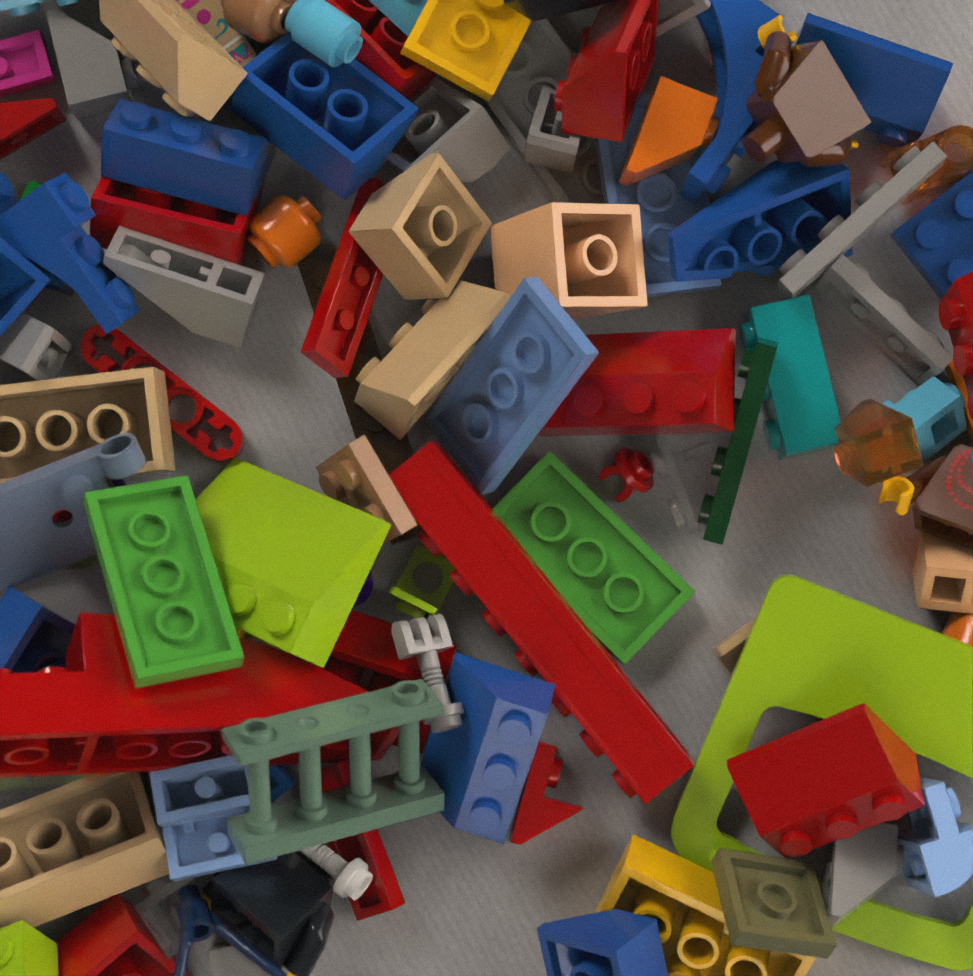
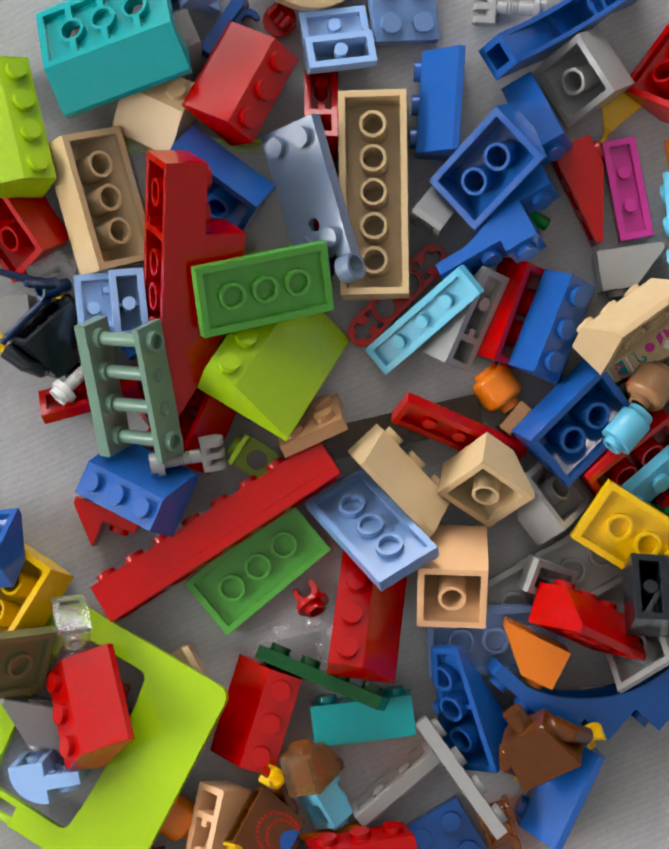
camera: 100 degrees right, 5 degrees up
(191, 342) = (424, 319): none -> medium azure plate
(327, 202) = (513, 417): none -> medium nougat plate
(706, 826) = (71, 625): none -> clear bracket
(808, 532) = (256, 715): none -> red slope

